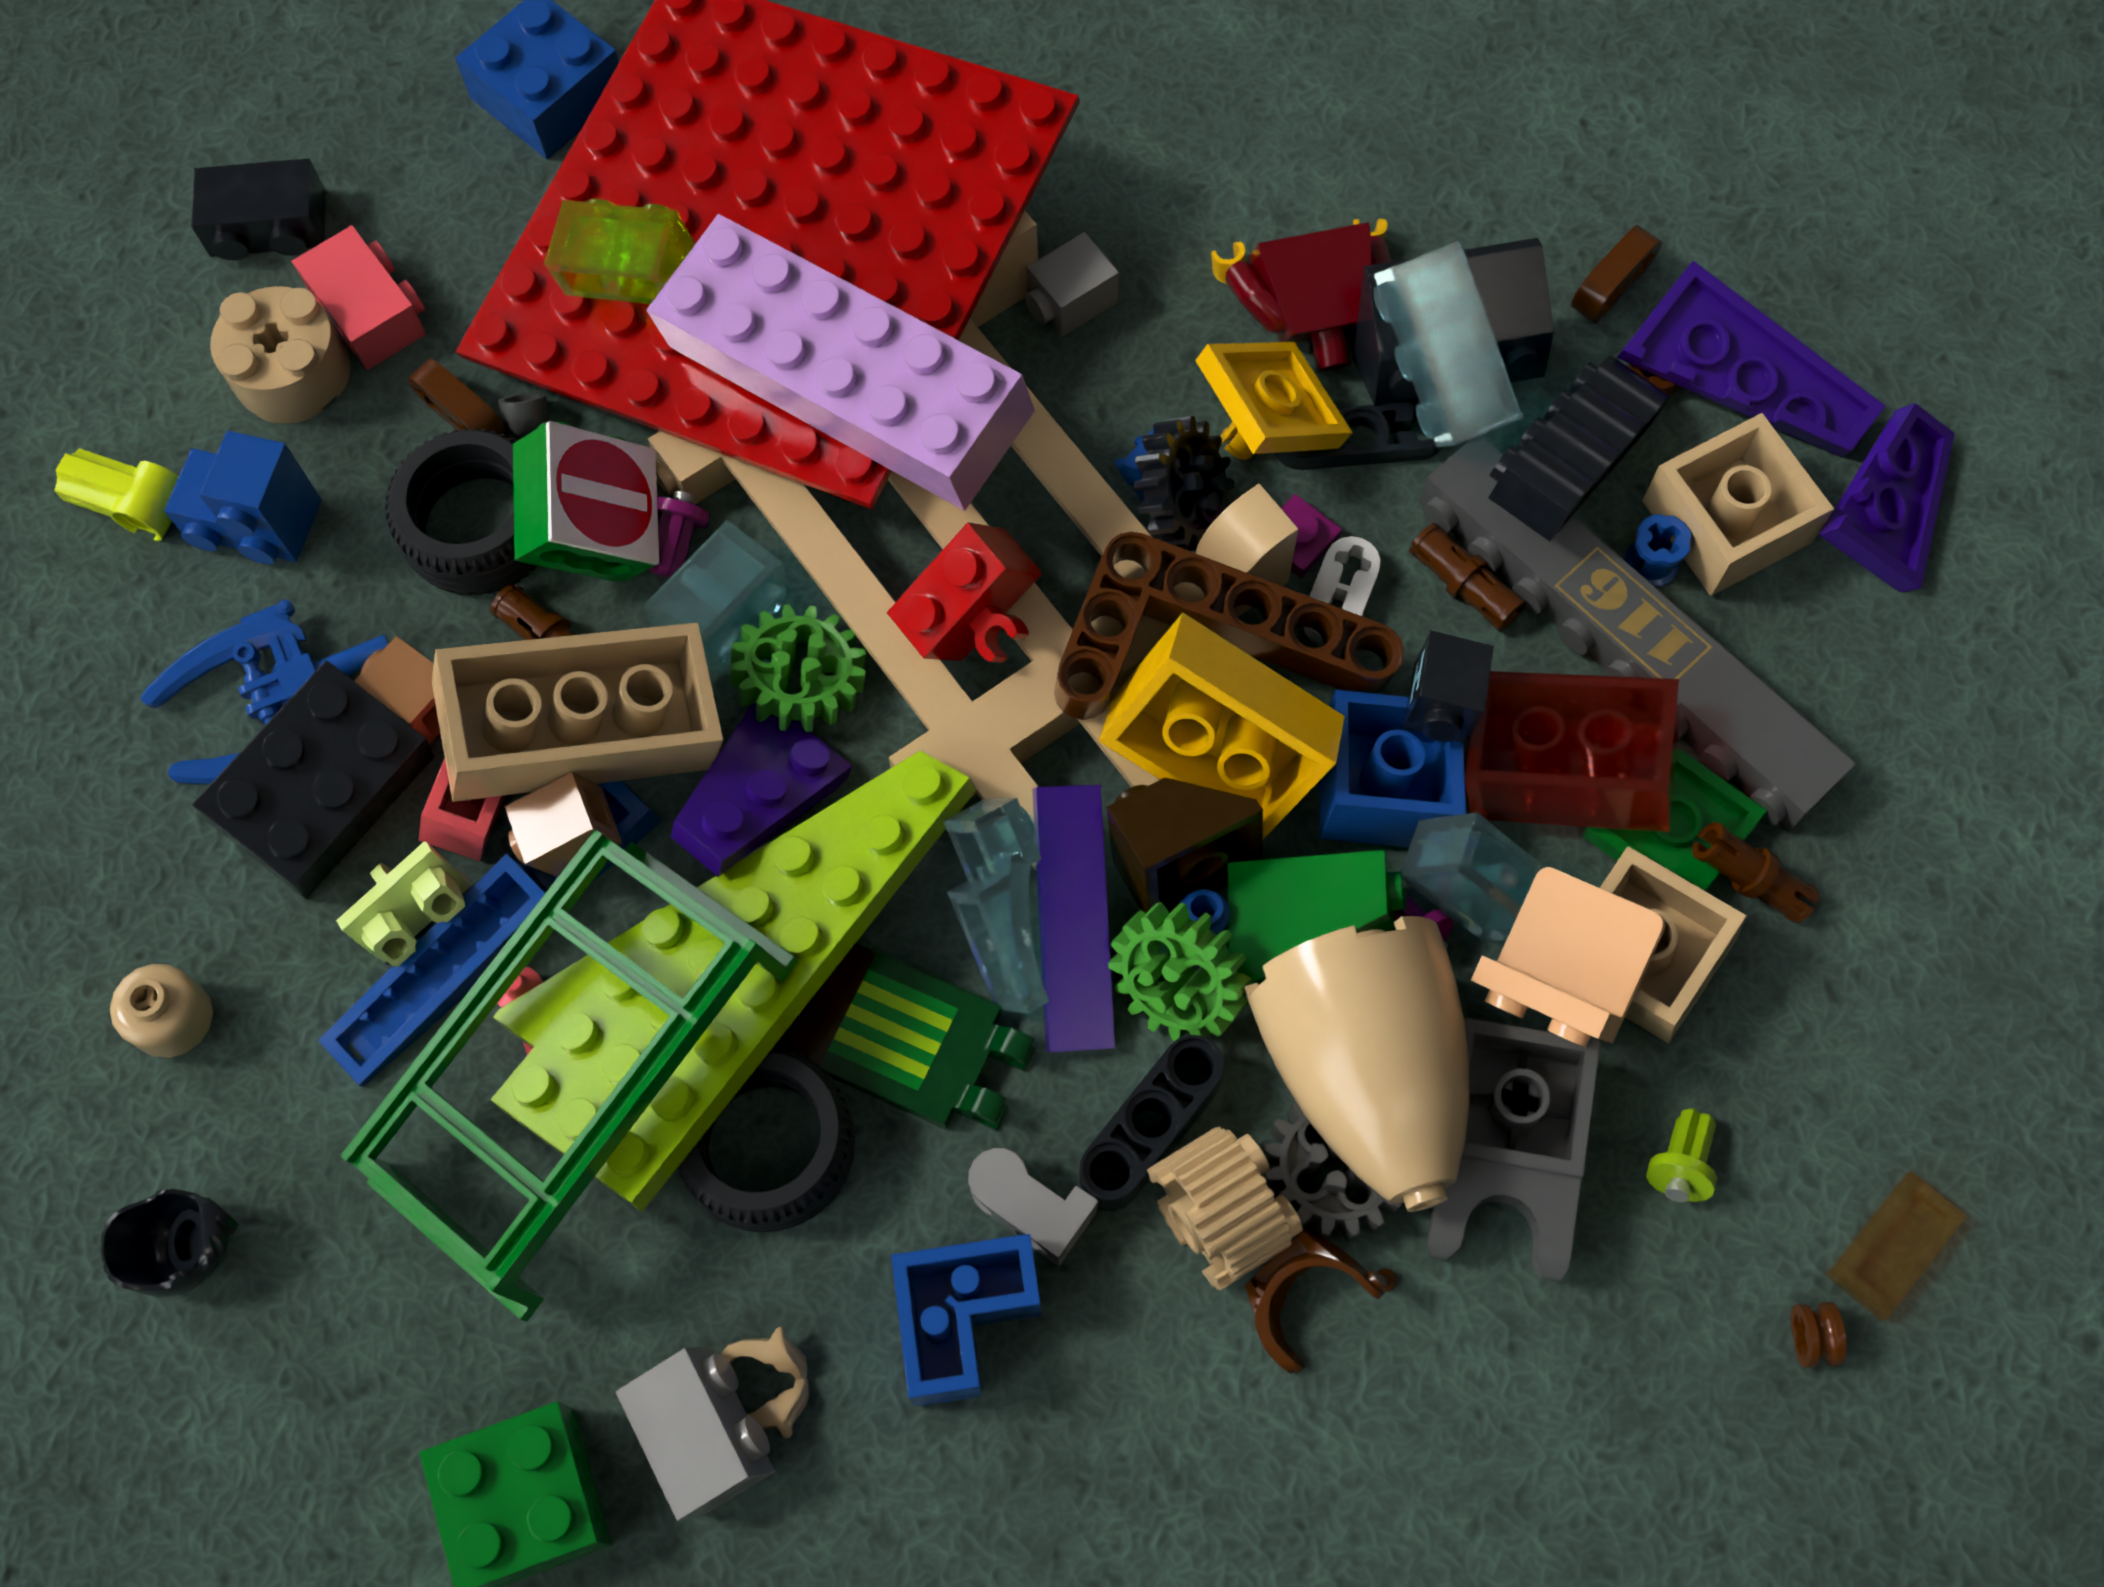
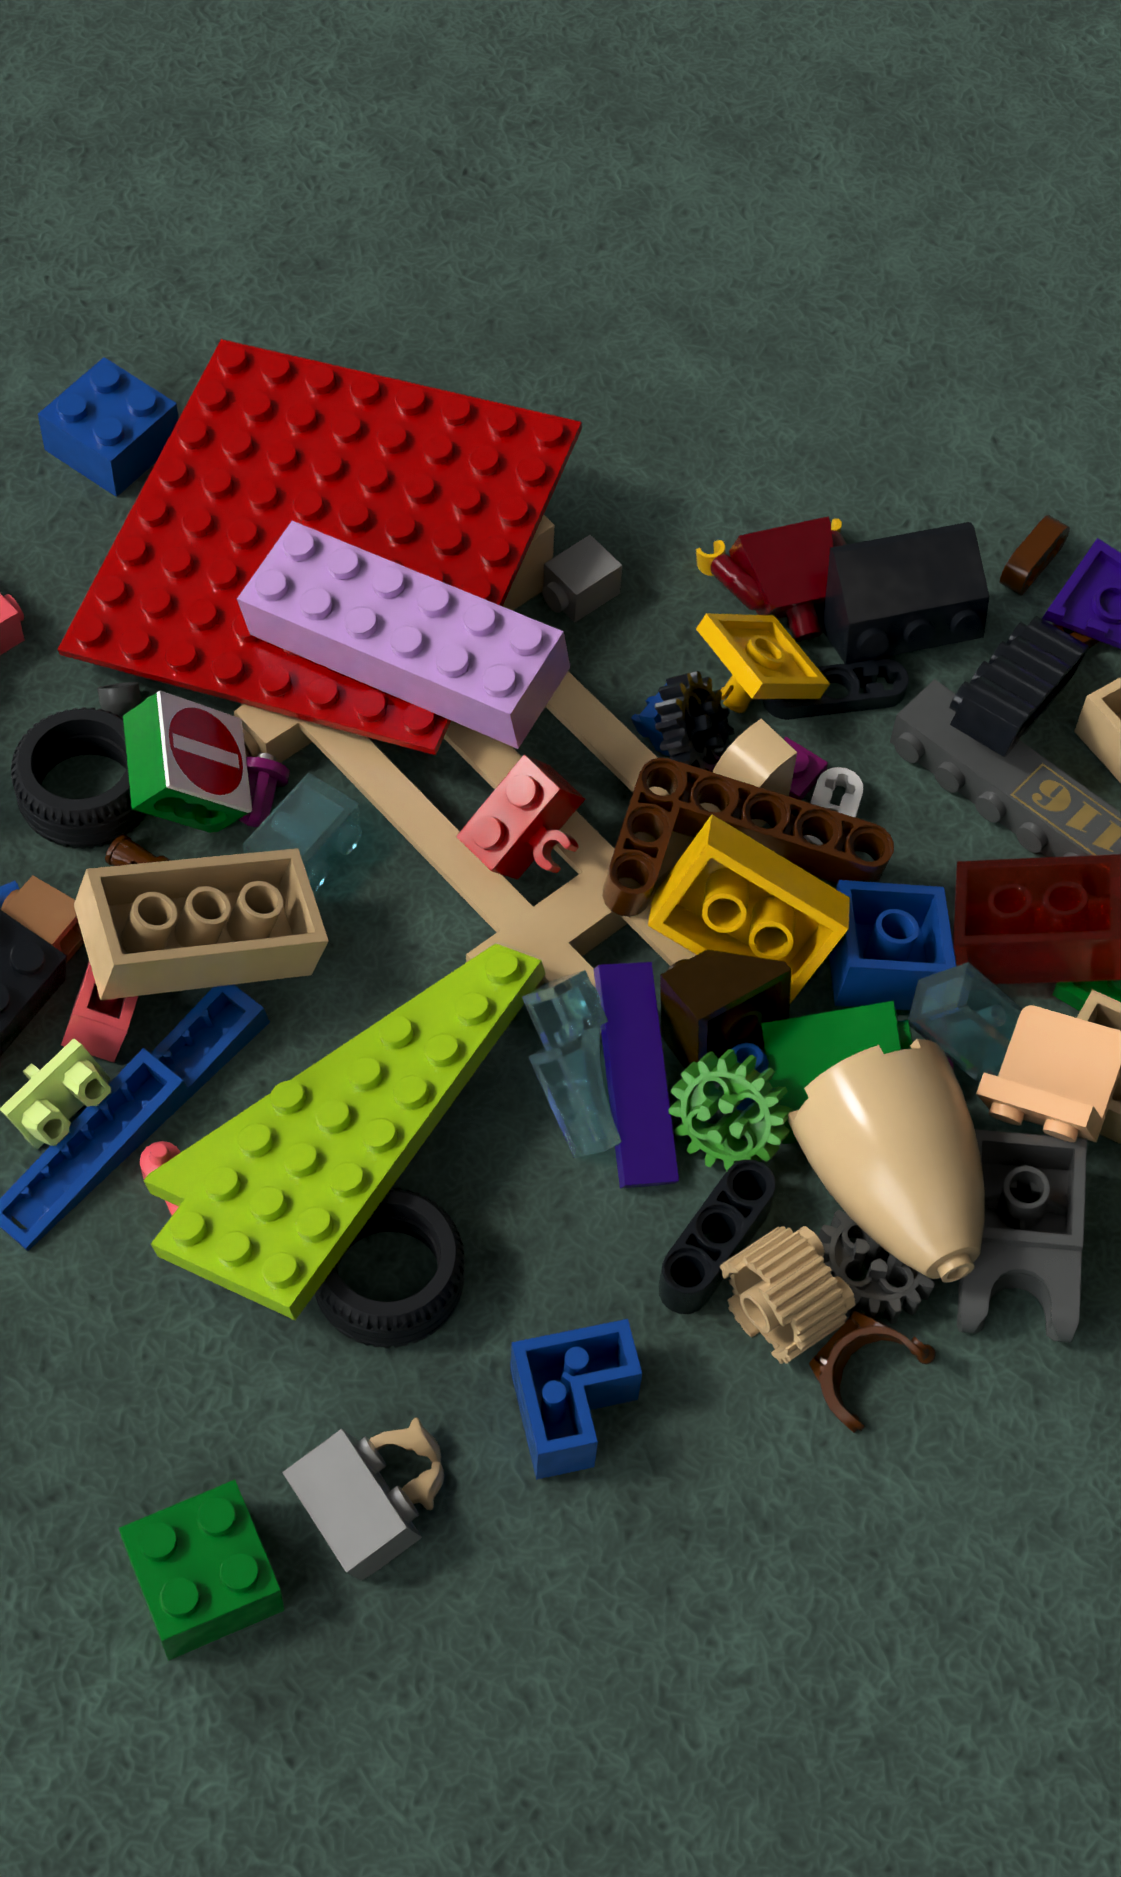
camera: 10 degrees left, 10 degrees down
(453, 399) = (55, 687): reddish brown beam -> none
(553, 1198) = (174, 1376): green piece -> none
(557, 822) = (191, 1020): medium nougat brick -> none
(616, 250) = (201, 558): clear neon green brick -> none
(756, 790) = (355, 984): dark purple wing -> none
(768, 682) = (350, 883): bright green gear -> none
(907, 1039) = (505, 1184): tile -> none
(1026, 1206) = (599, 1297): light grey leg -> none
(1446, 346) = (903, 607): clear light blue brick -> none
(1448, 687) = (933, 871): black brick -> none
(1467, 577) = (936, 796): reddish brown pin -> none
(1652, 545) = (1087, 759): blue bush -> none

